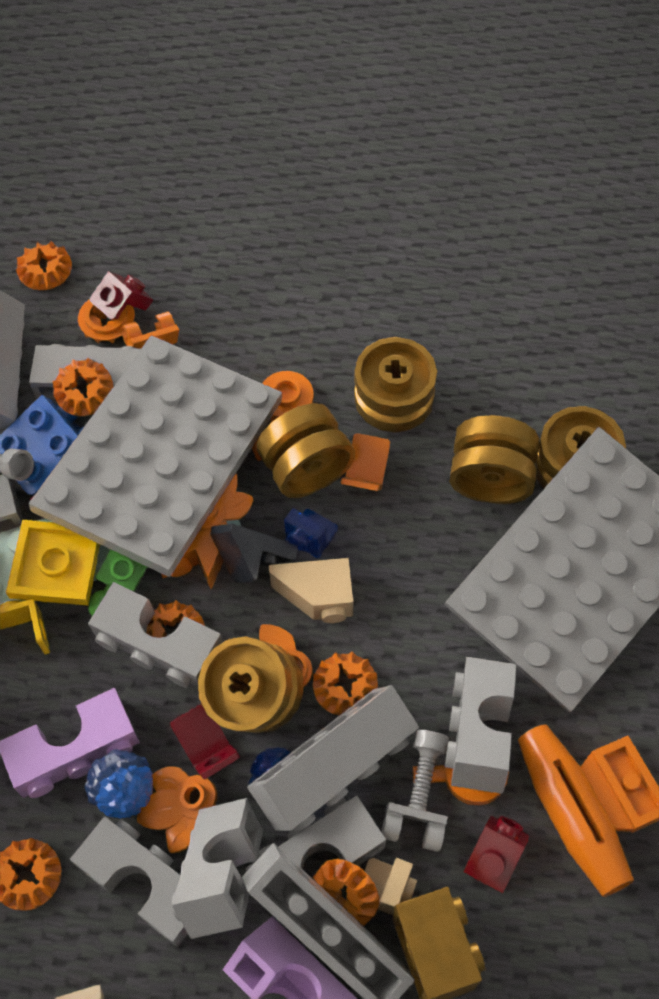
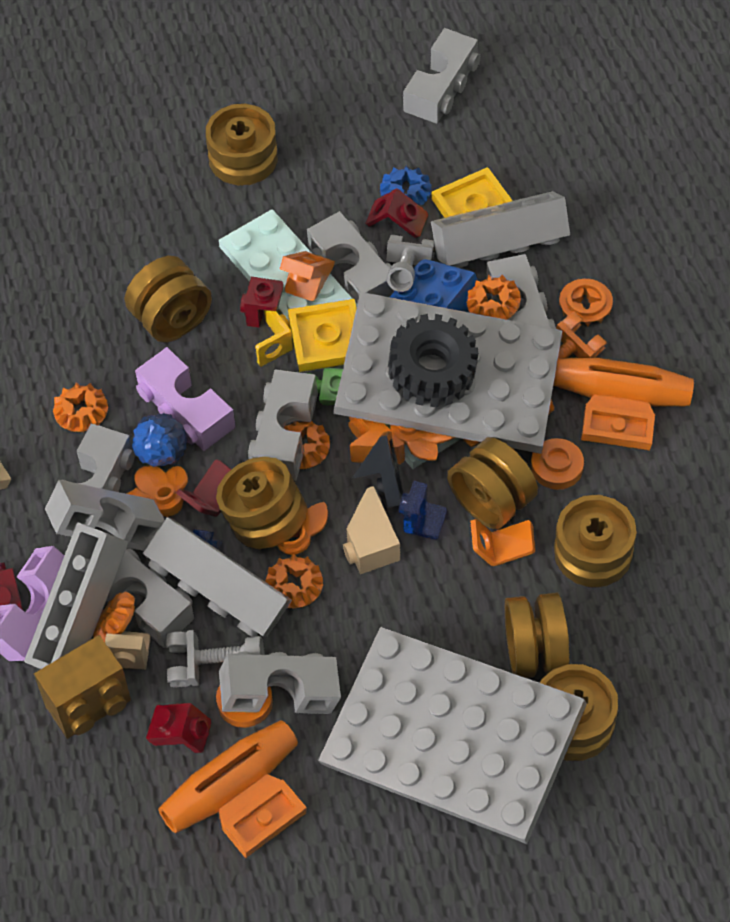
camera: 75 degrees right, 5 degrees down
(58, 266) = (621, 248): orange gear -> none
(117, 292) = (610, 300): dark red bracket -> none
(152, 427) = (437, 339): none -> black tyre
(231, 315) = (621, 397): none -> orange plate

